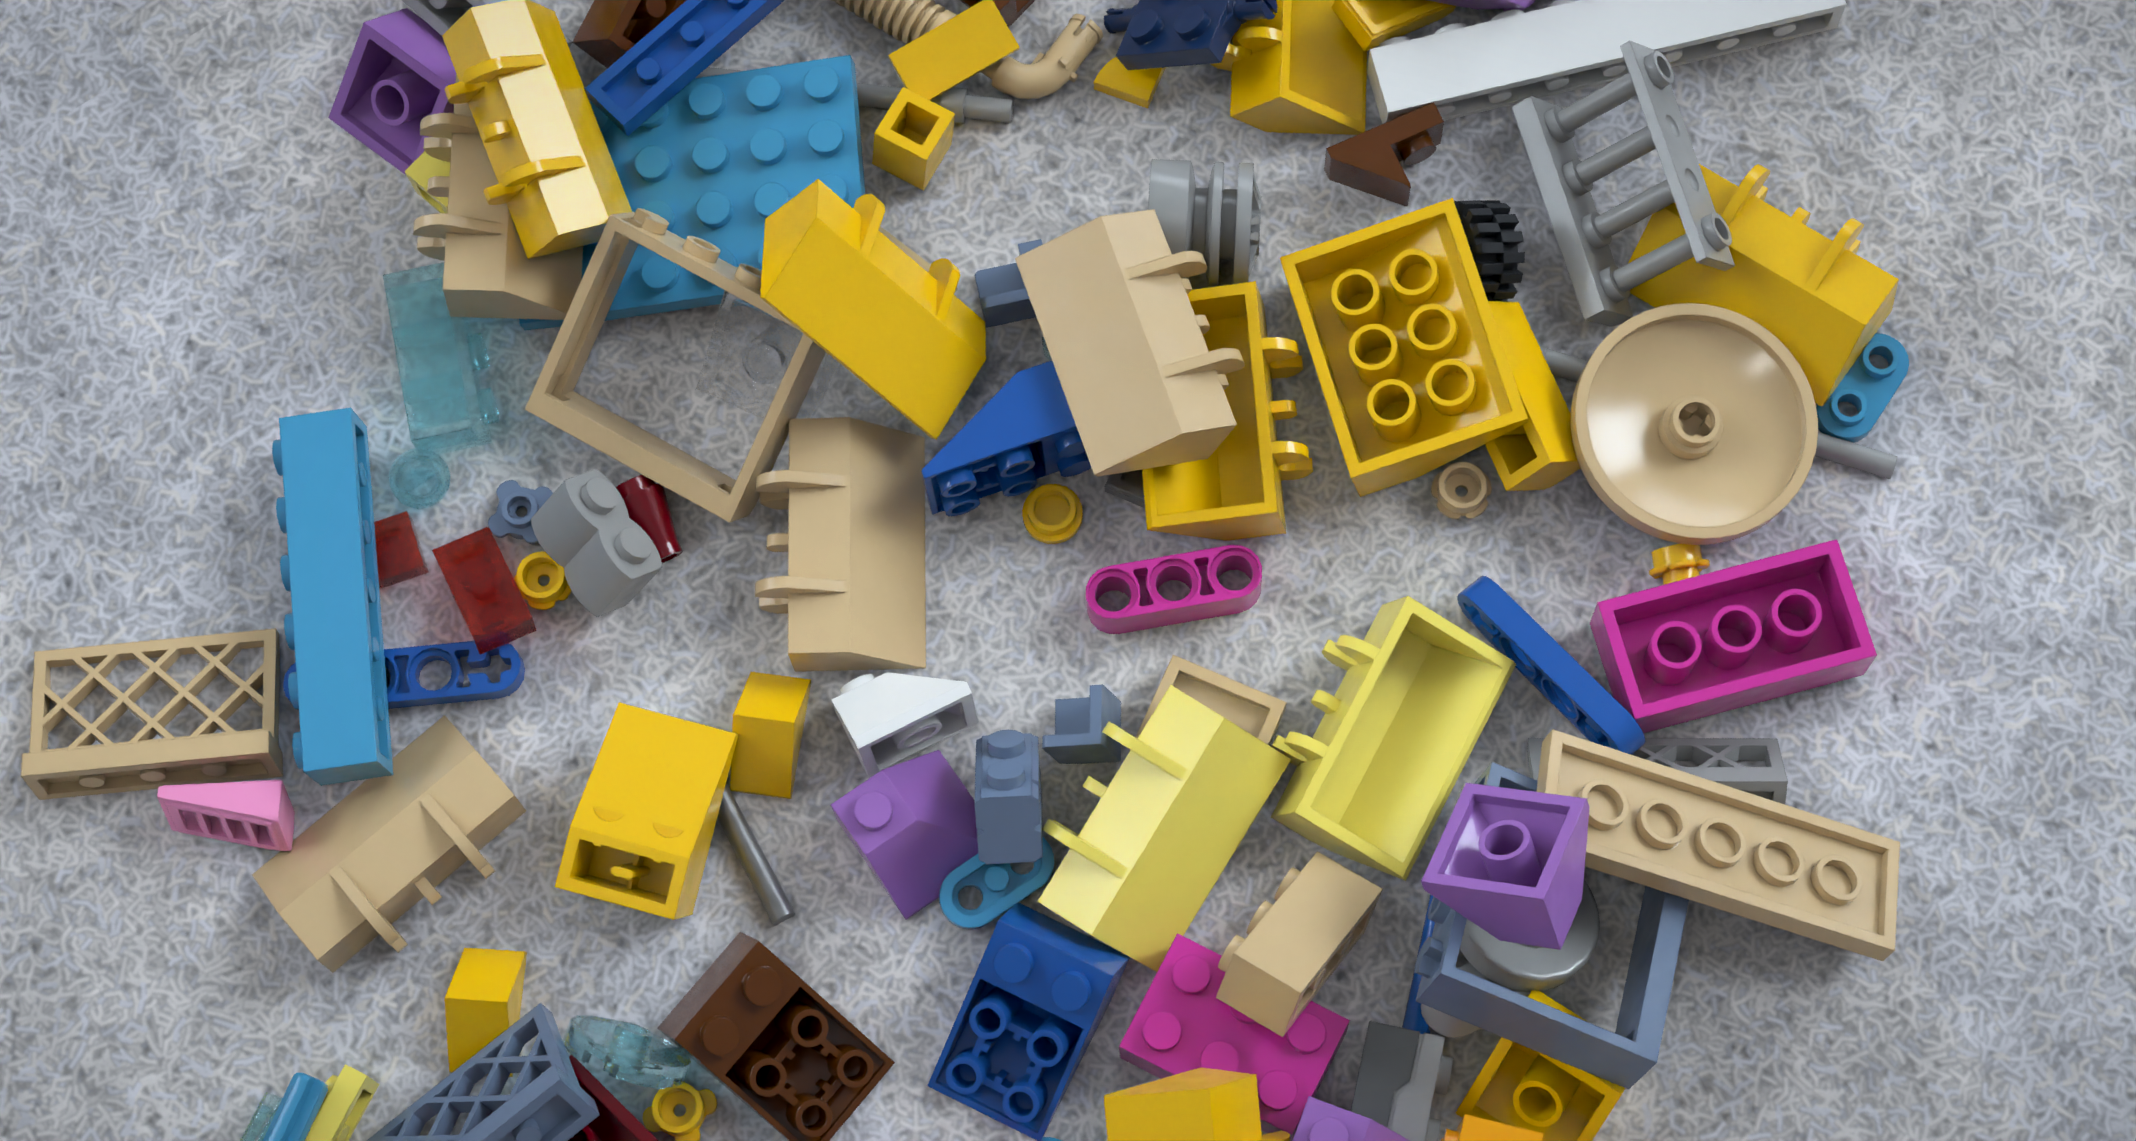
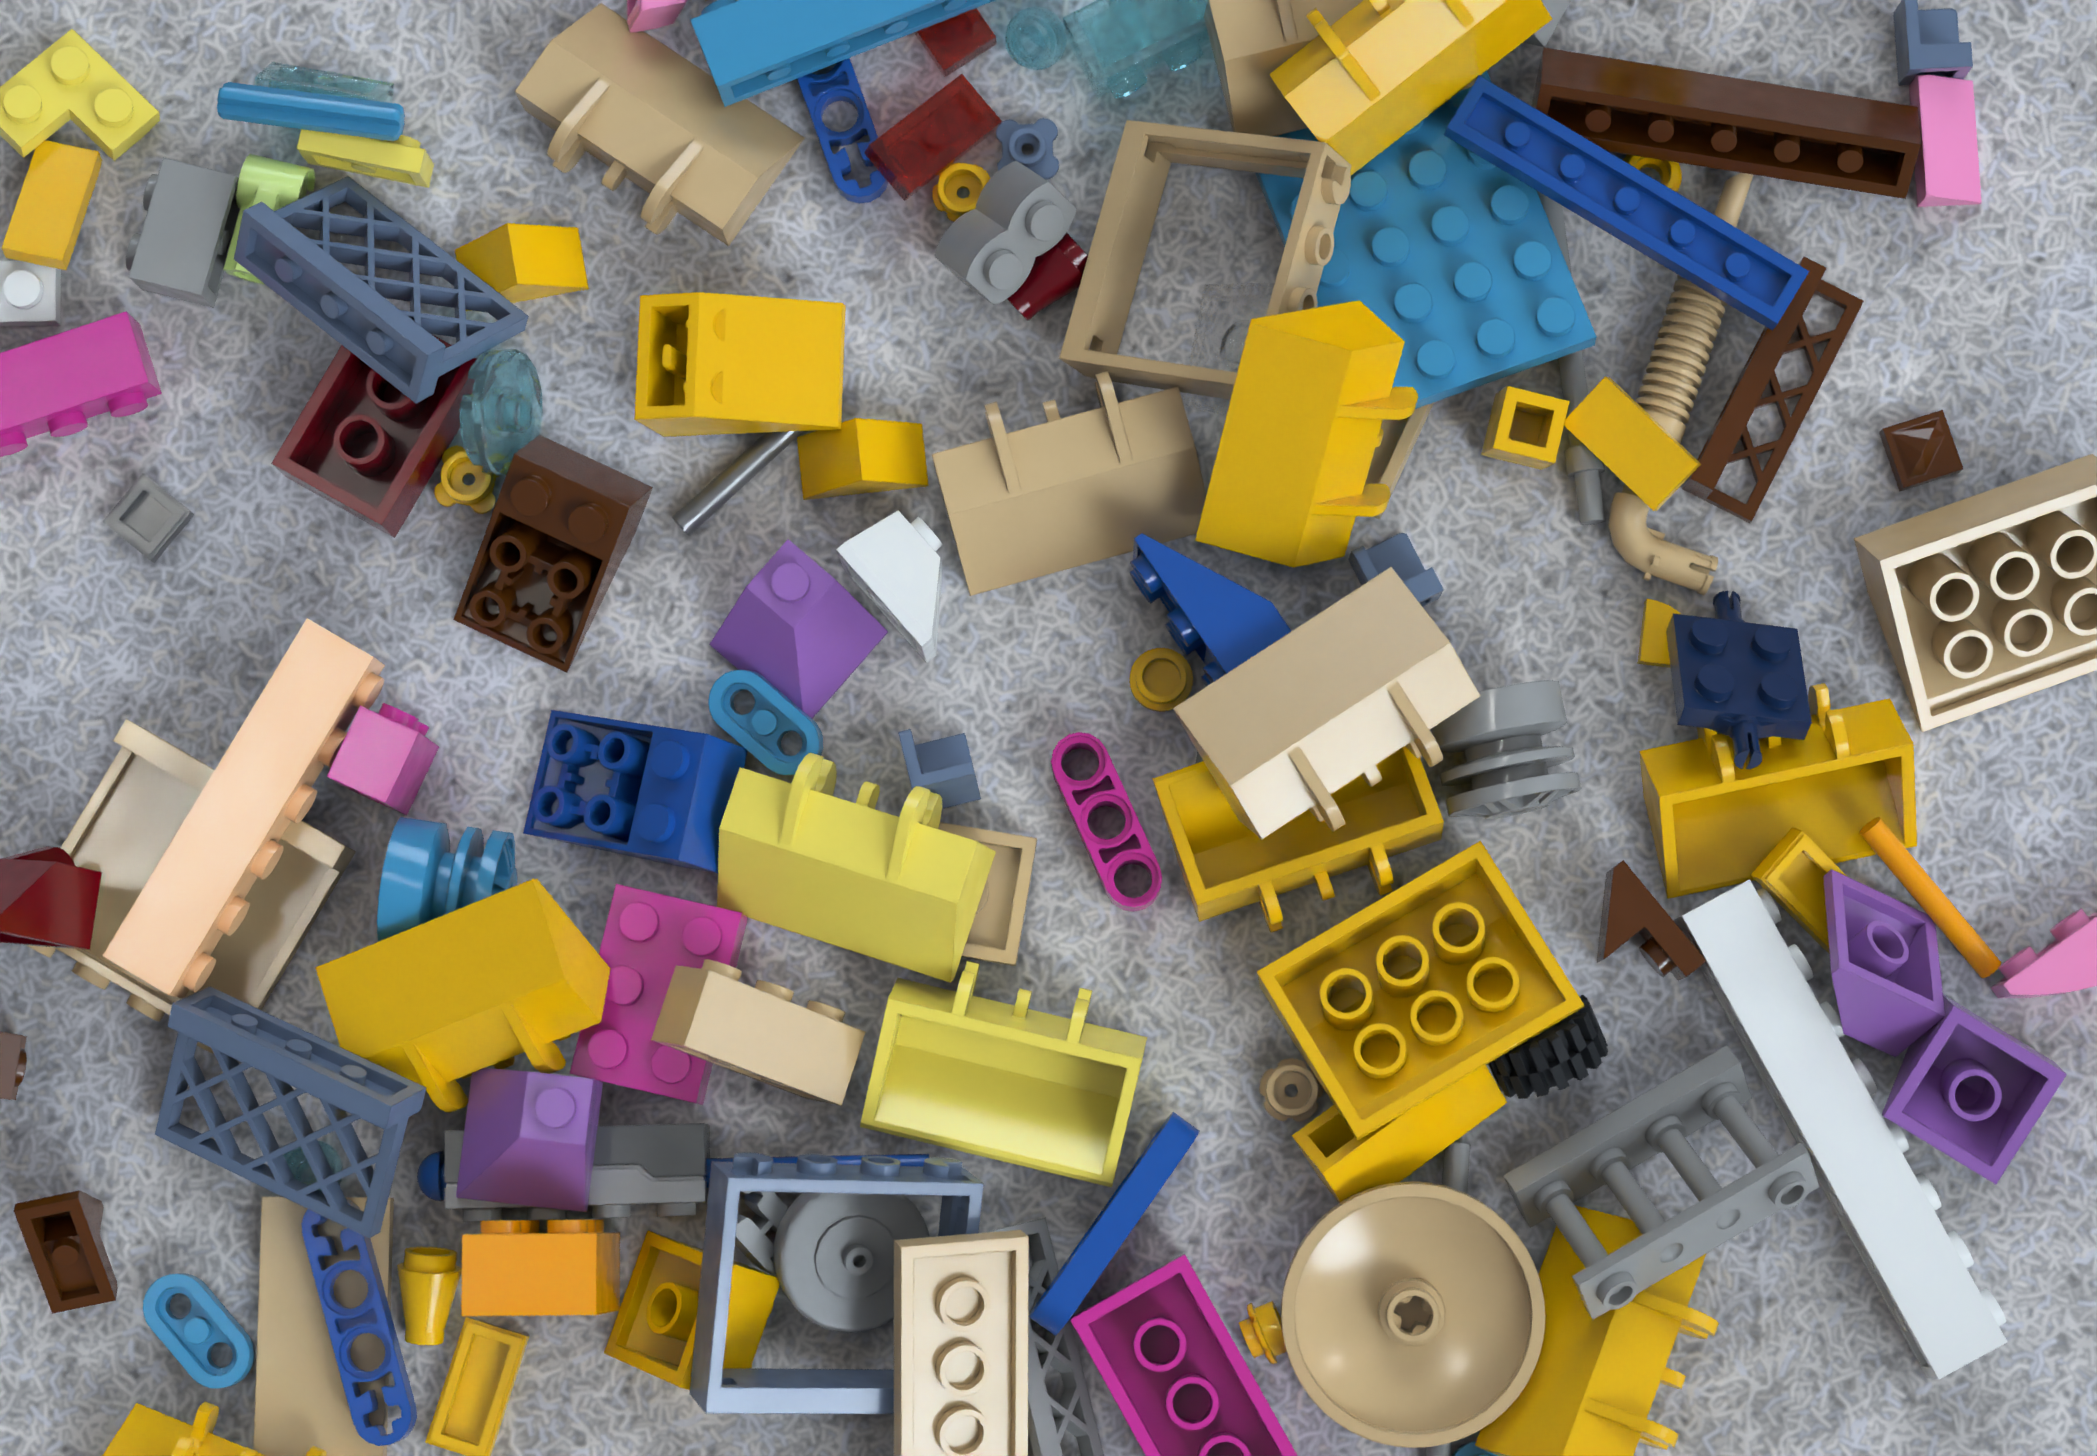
camera: 75 degrees right, 10 degrees up
(1008, 798) = (838, 712): sand blue brick -> none
(1513, 863) = (864, 1224): medium lavender slope -> none

